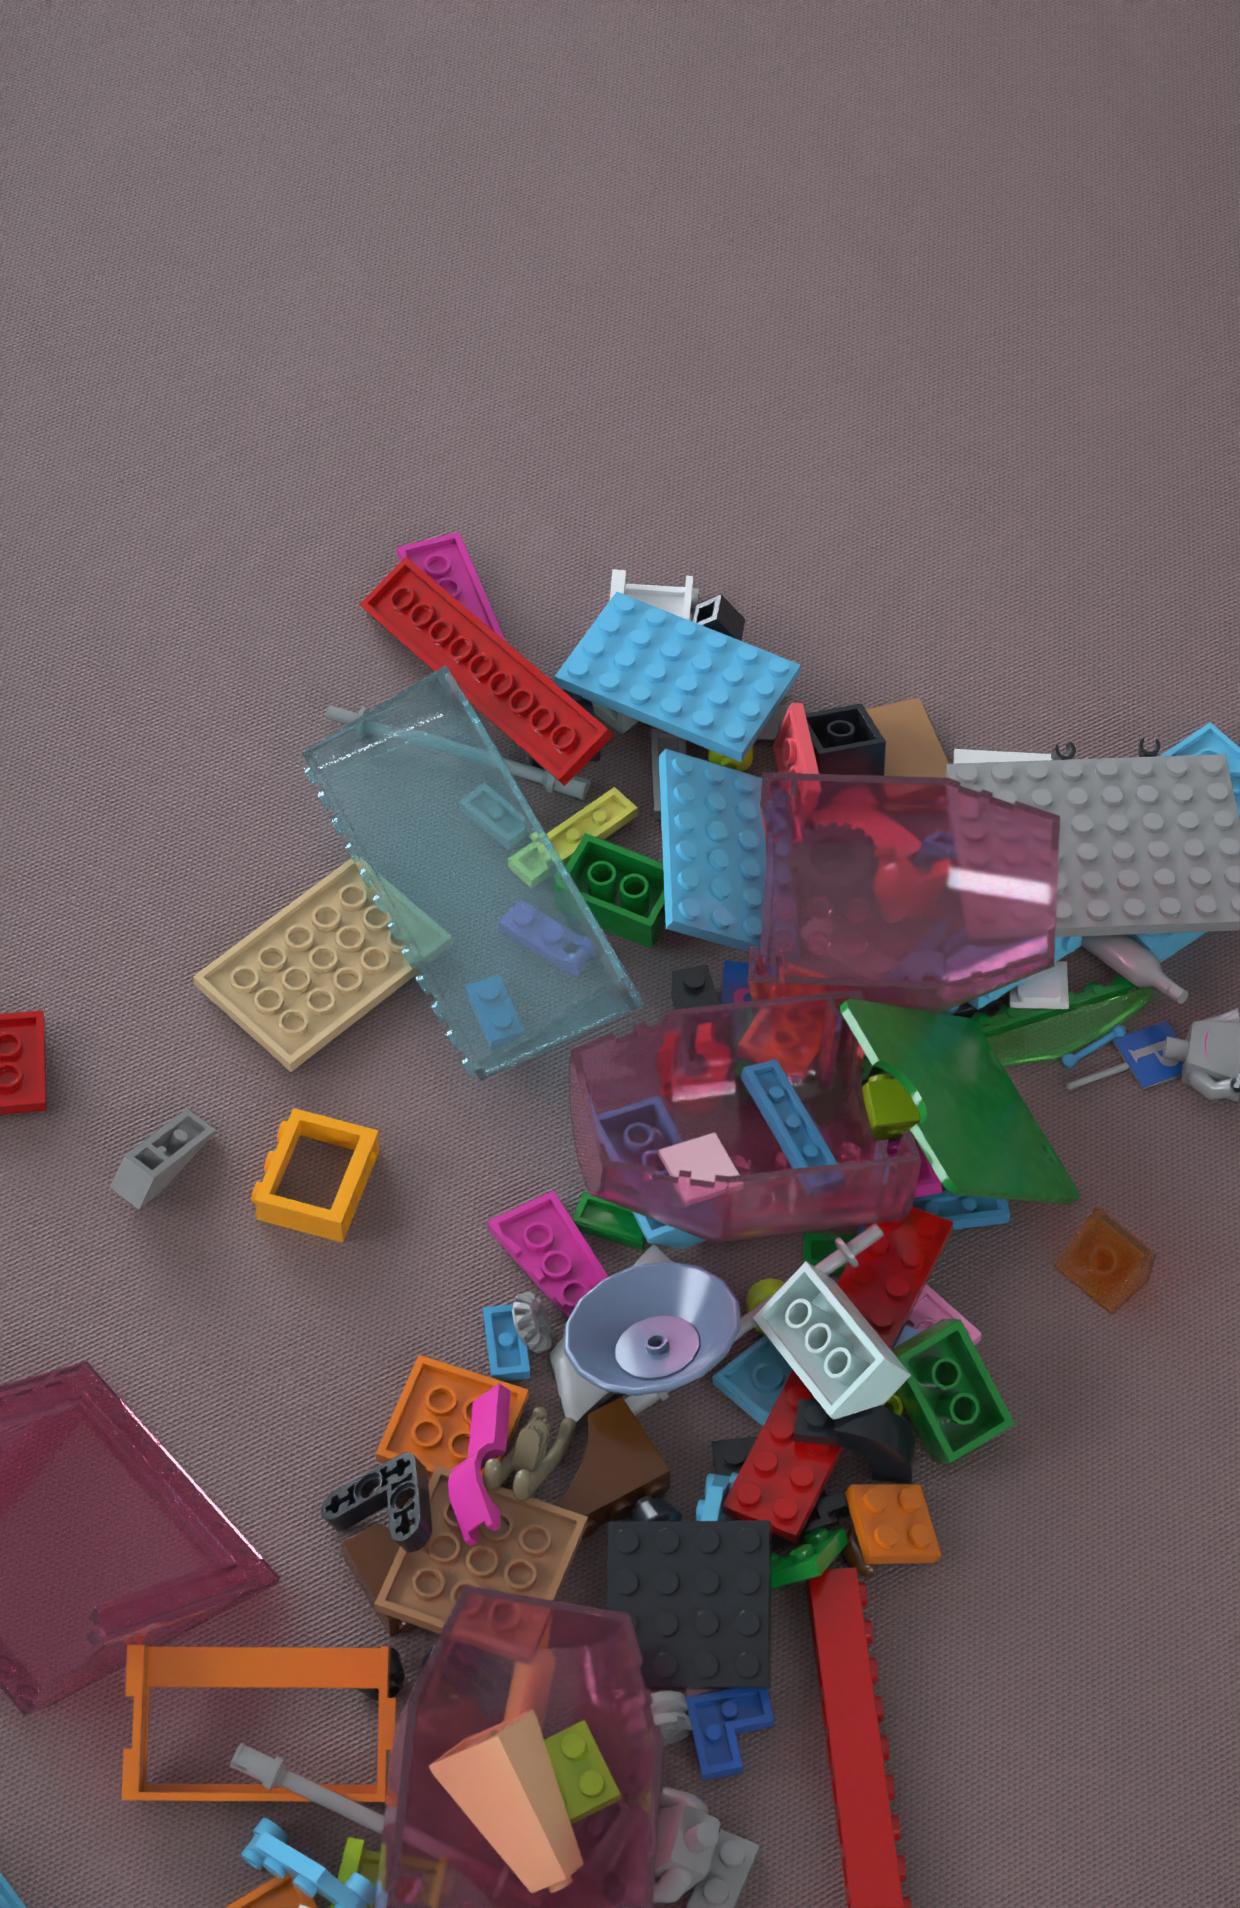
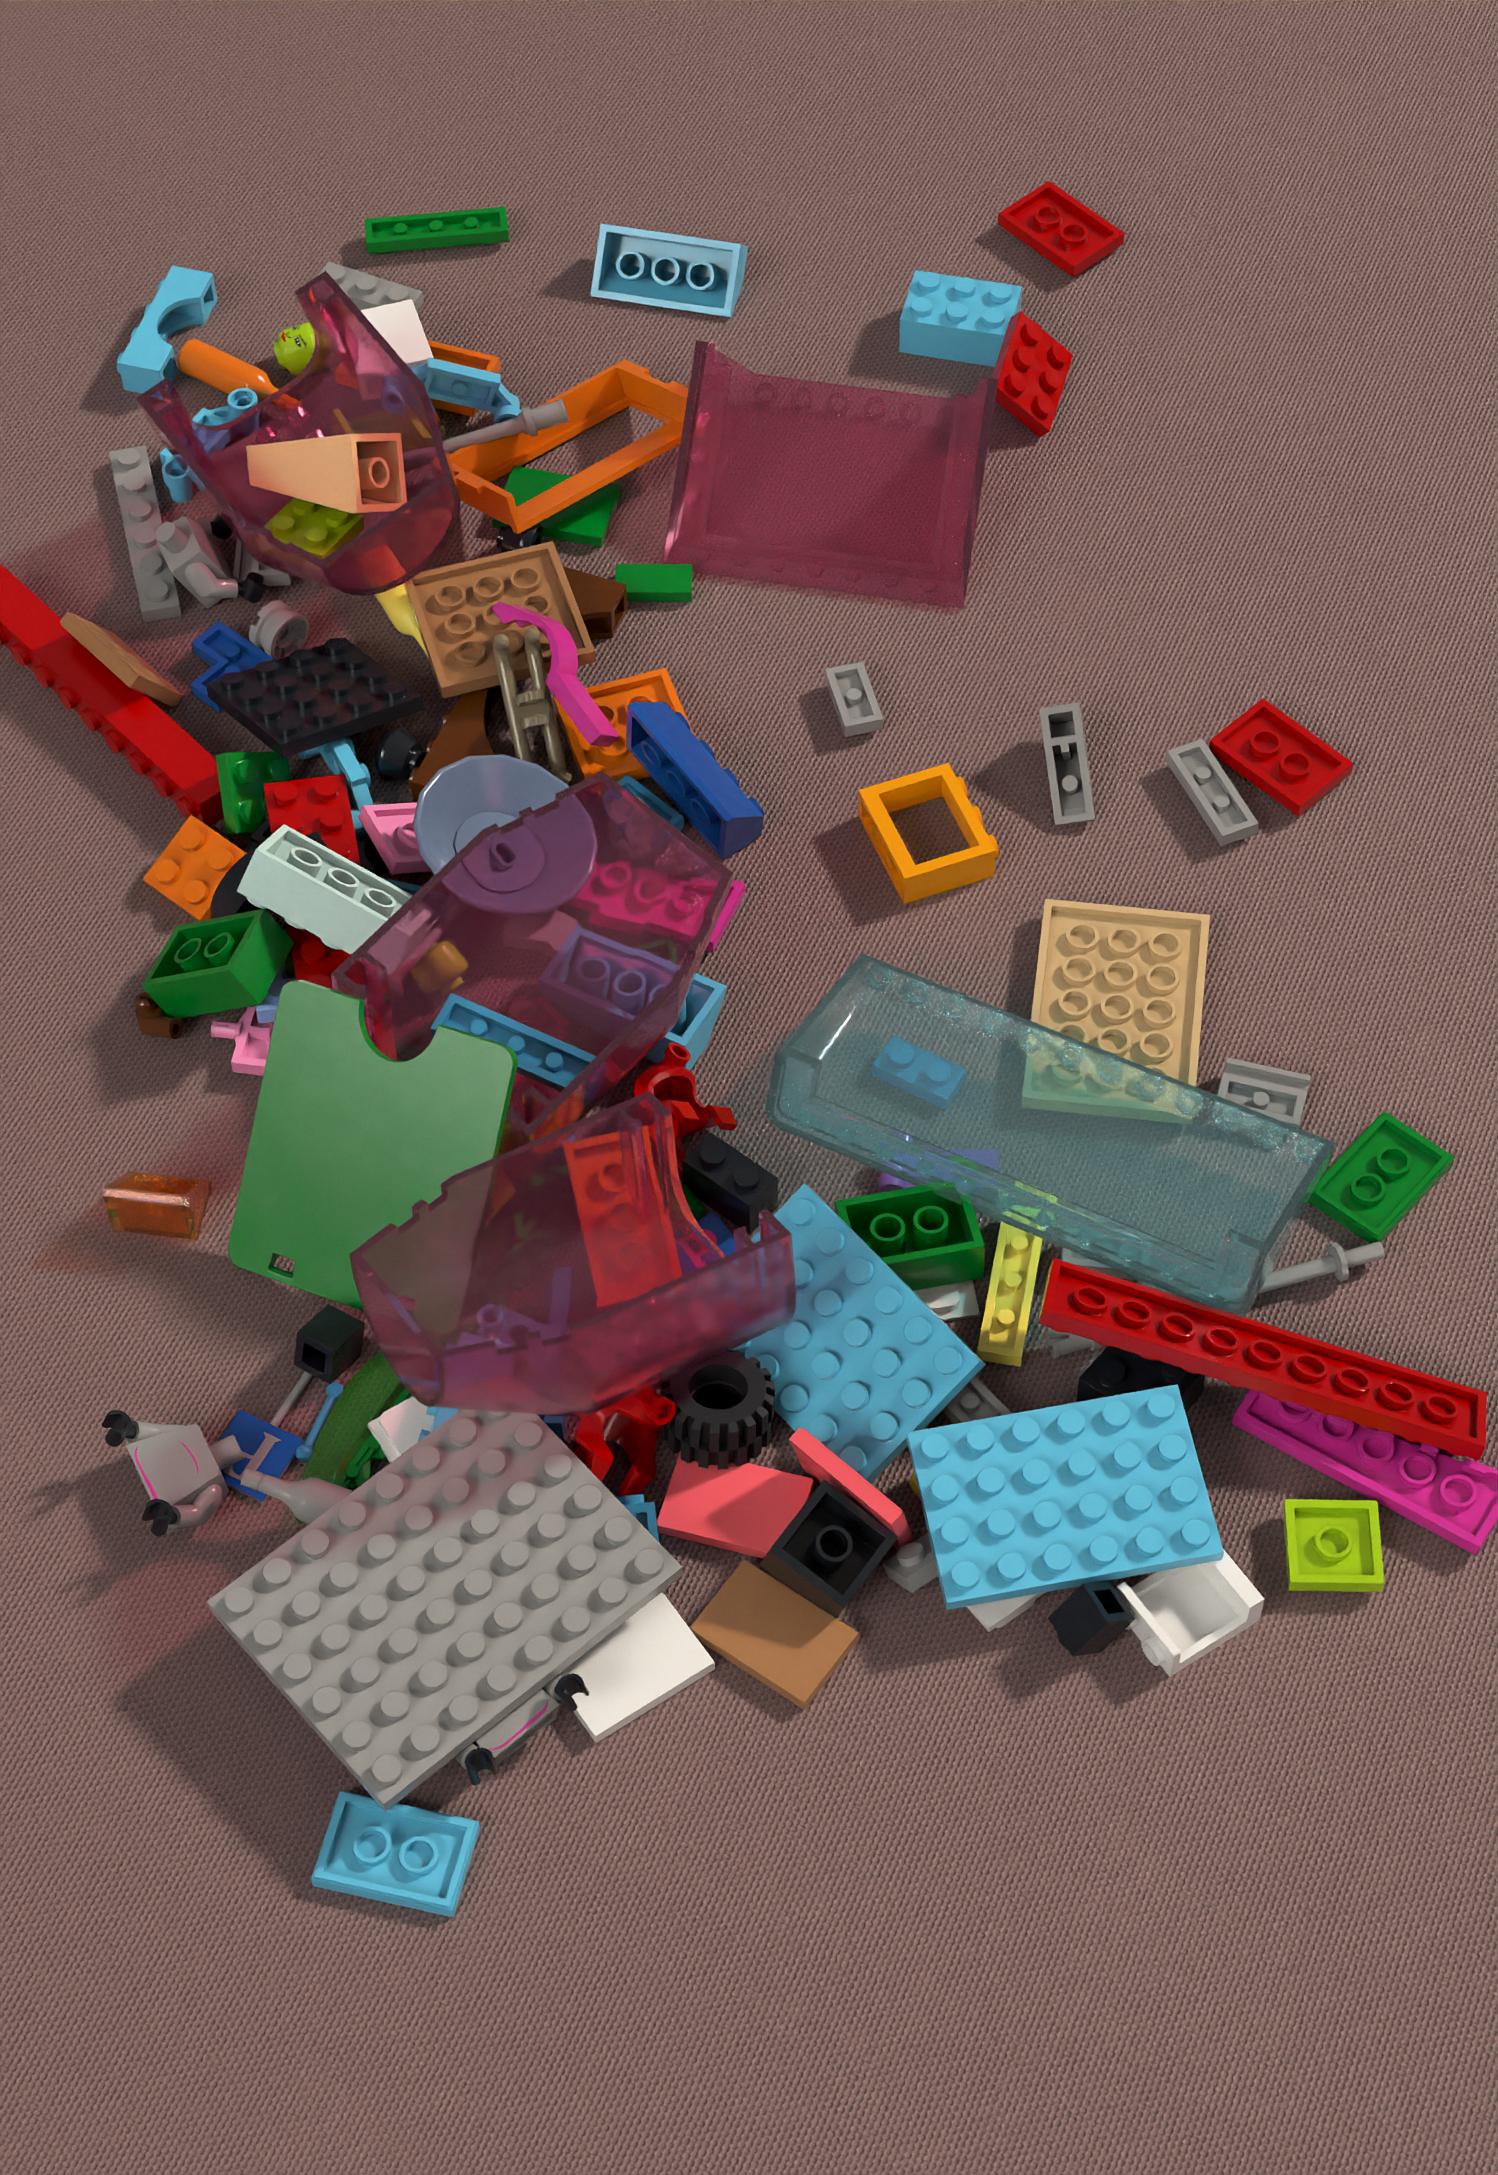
camera: 145 degrees right, 0 degrees up
(84, 1071) = (1212, 792): none -> light grey plate
(256, 1328) = (853, 699): none -> light grey plate
(268, 758) = (1380, 1178): none -> green tile
(293, 846) = (1265, 1089): none -> light grey plate
(303, 1563) = (656, 582): none -> green tile
(315, 1723) = (581, 522): none -> green tile
(397, 1482) = (611, 632): black beam -> none
(452, 1314) = (692, 777): none -> blue slope
(536, 587) = (1333, 1545): none -> lime plate
(701, 1156) = (572, 968): piece -> none
(705, 1429) = (394, 836): none -> bright pink plate
(820, 1776) = (121, 659): none -> medium nougat tile
(1015, 1434) = (153, 1019): none -> reddish brown arm
(1055, 1075) = (329, 1344): none -> black brick

